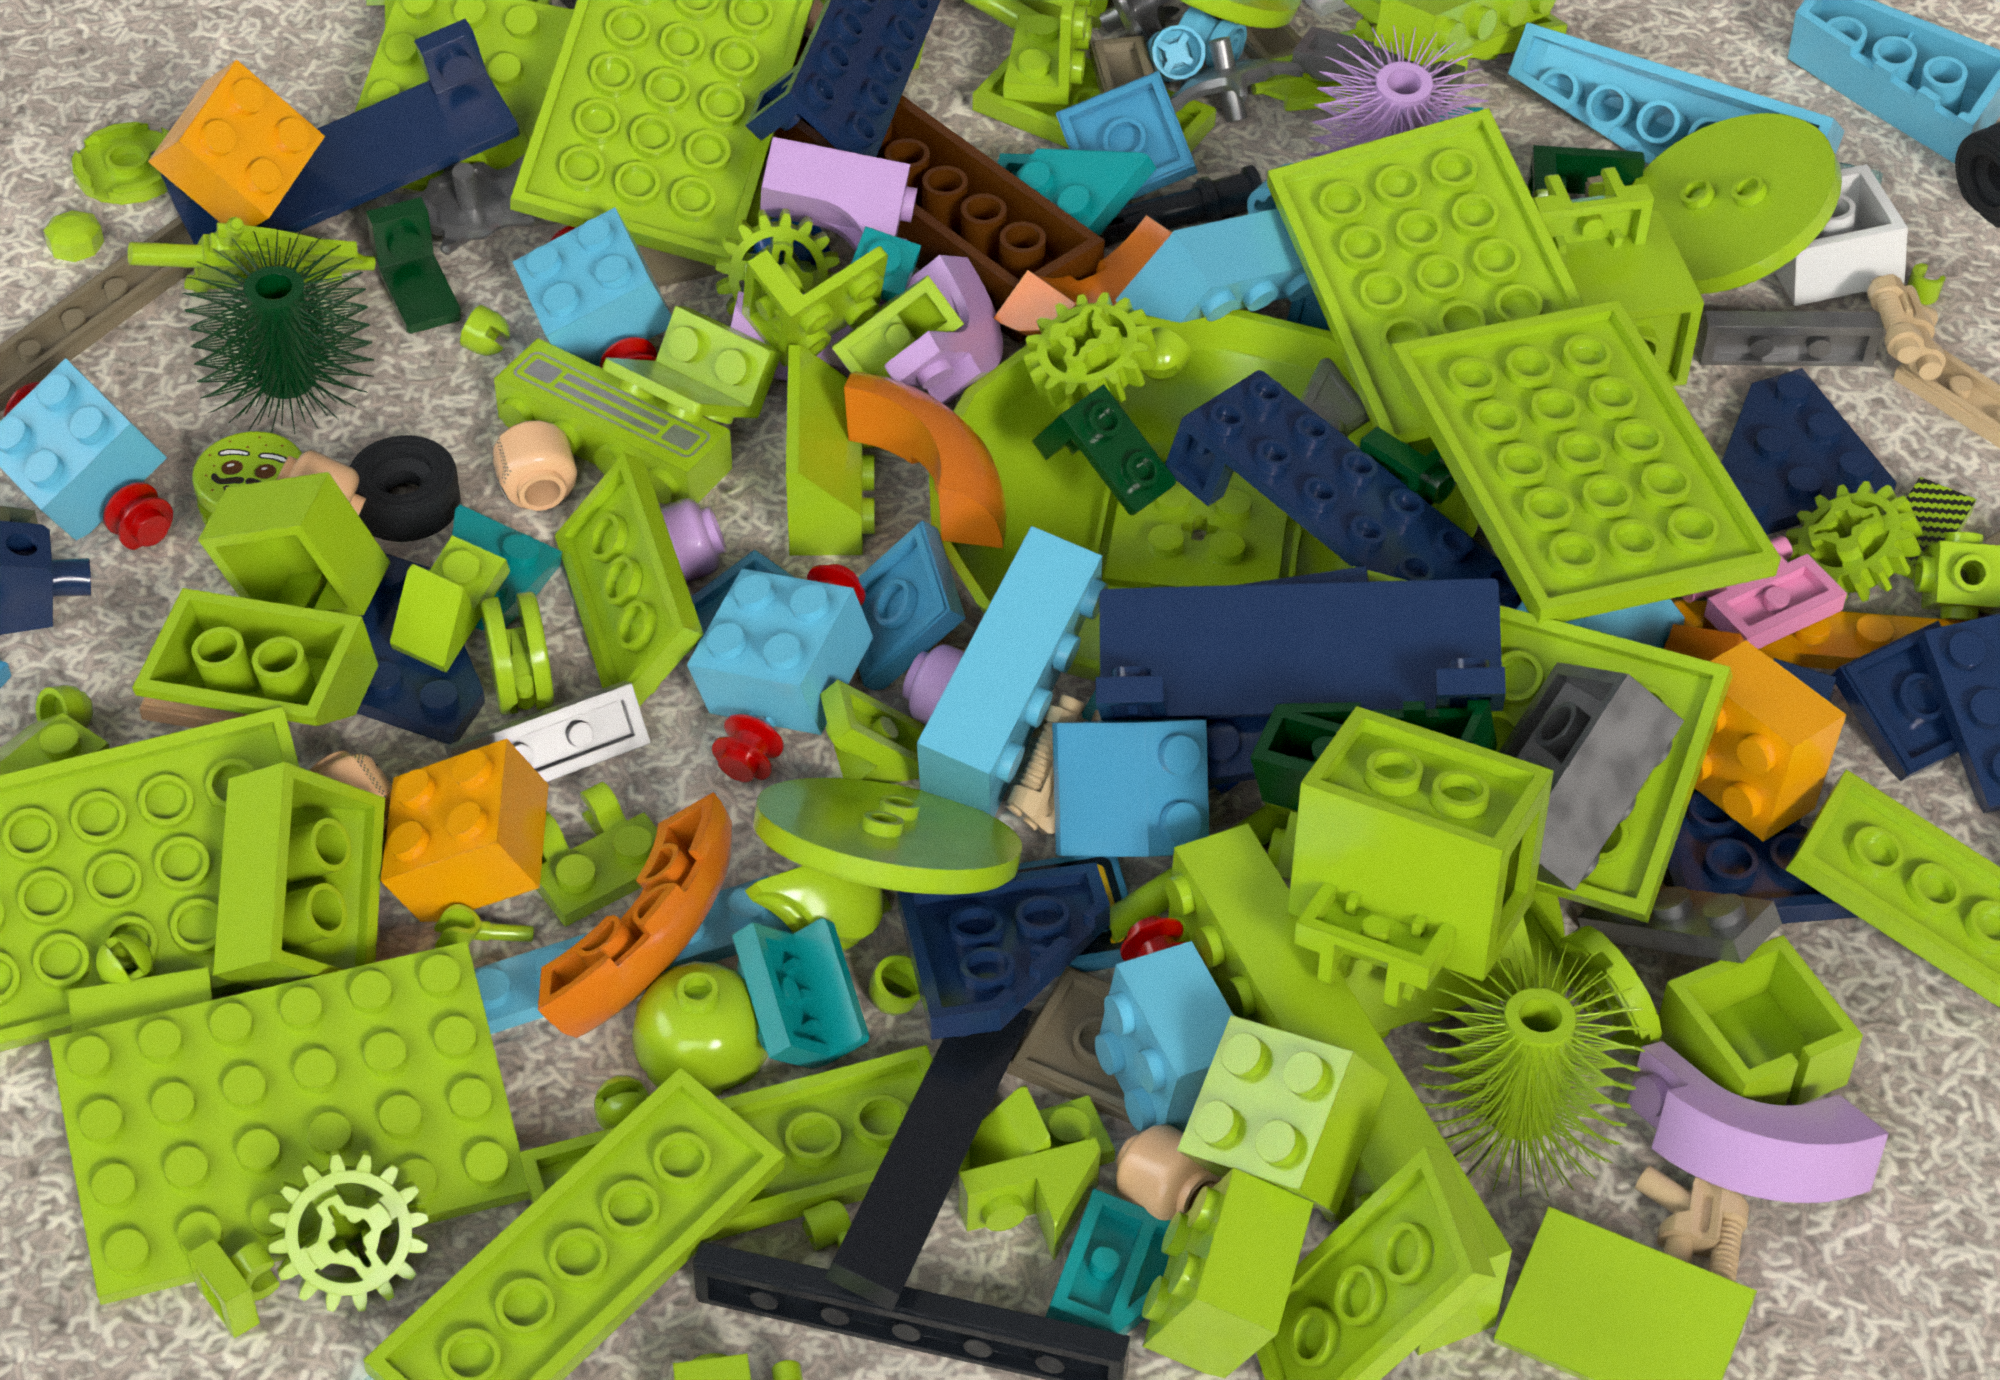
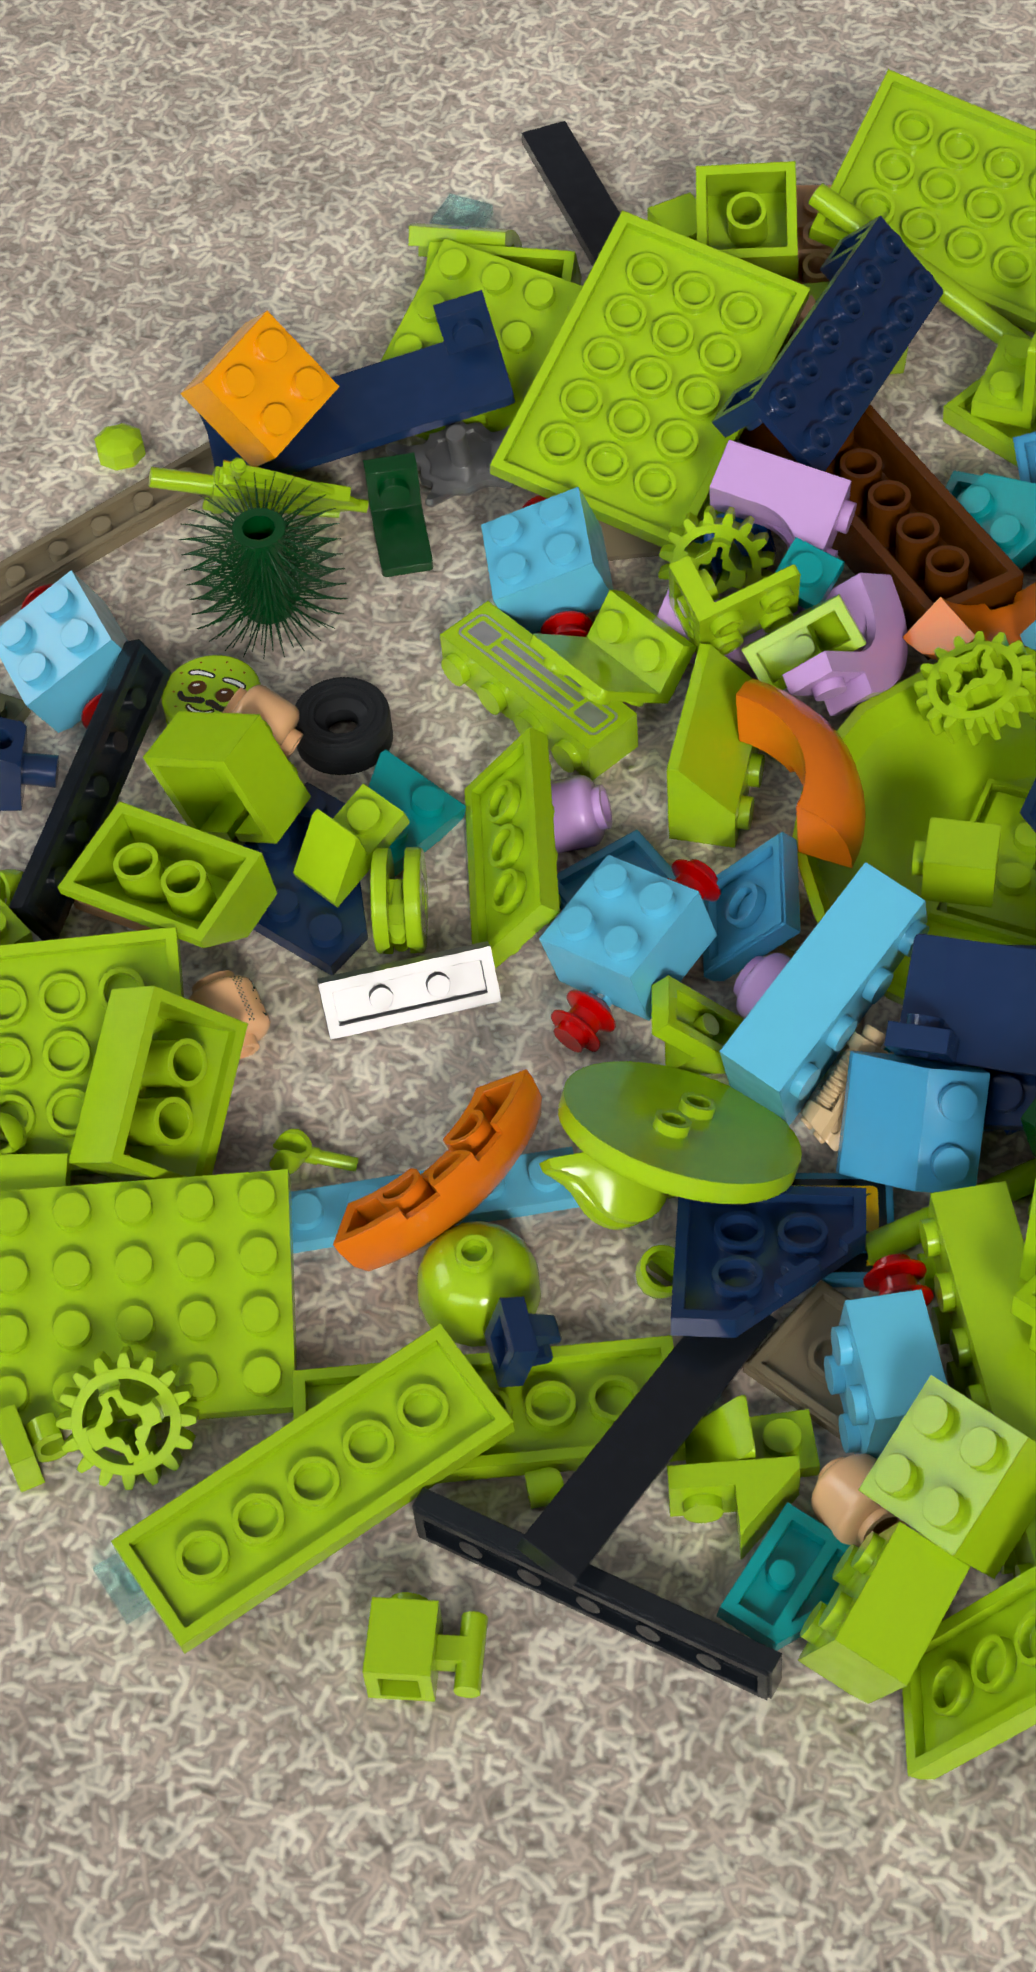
camera: 20 degrees right, 5 degrees up
(117, 178) = (159, 386): lime tile -> none
(137, 584) = (90, 786): none -> black tile
(465, 831) = (313, 1064): light orange brick -> none
(479, 325) = (447, 576): lime hinge -> none
(534, 465) = (460, 721): light nougat head -> none
(600, 869) = (425, 1115): lime plate -> none
(617, 1099) = (390, 1336): lime hinge -> none
(765, 1073) = (519, 1340): none -> dark blue tile
(801, 993) = (570, 1264): teal bracket -> none
(1112, 447) = (971, 782): dark green bracket -> none
(1117, 521) = (958, 862): none -> lime brick

